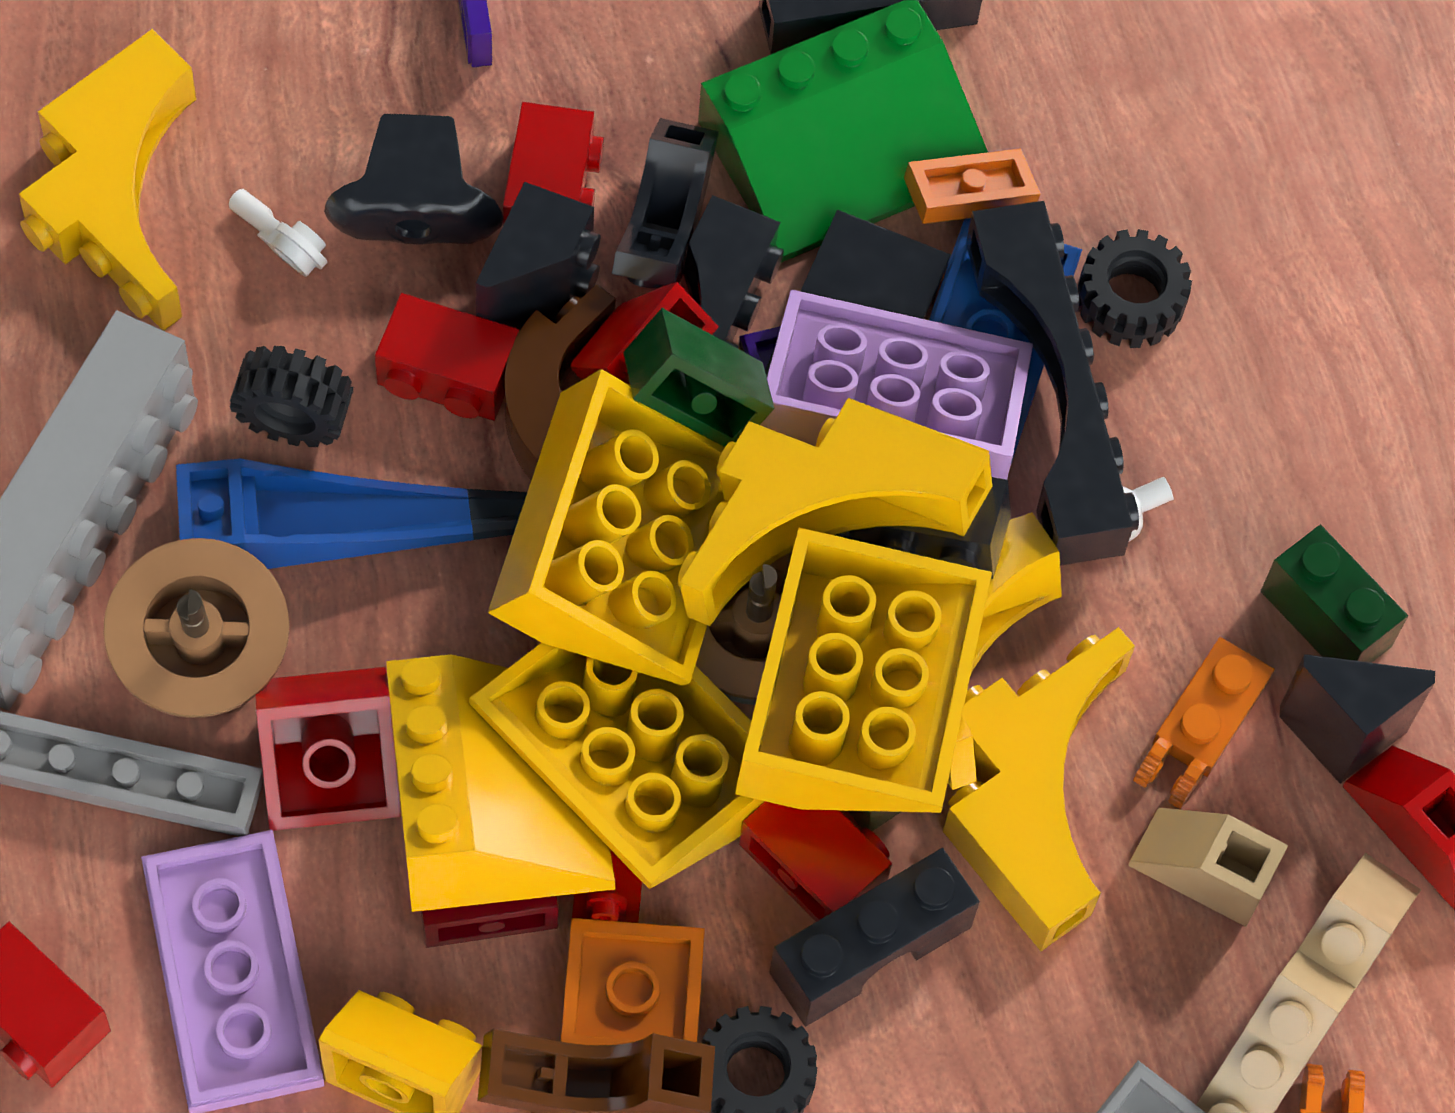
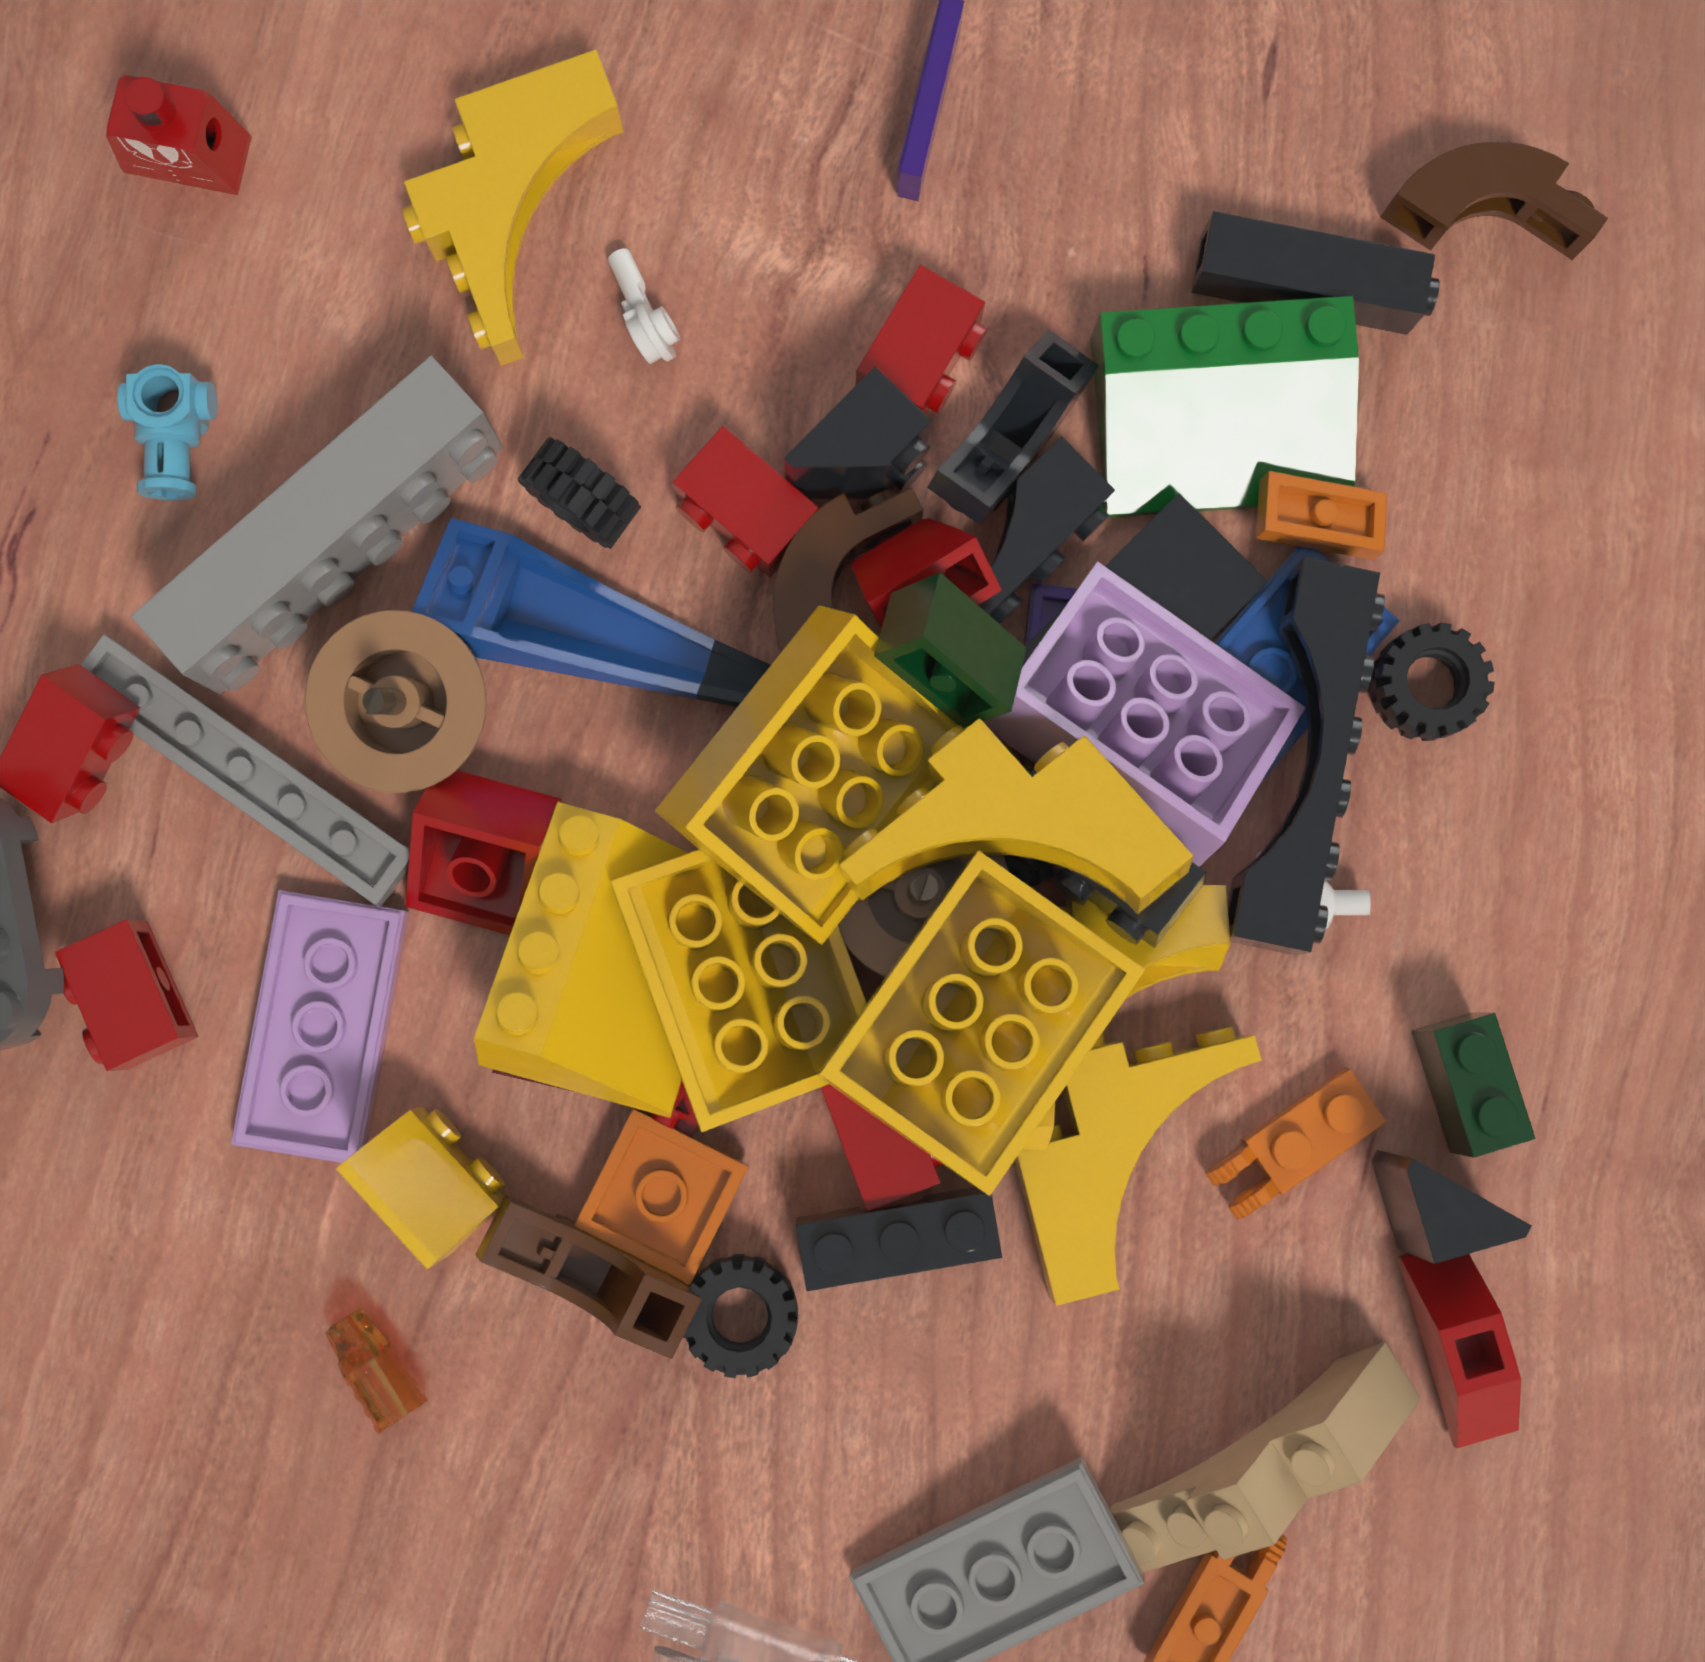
camera: 20 degrees right, 20 degrees up
(414, 188) = (781, 313): black piece -> none
(1209, 859) = (1238, 1290): tan slope -> none

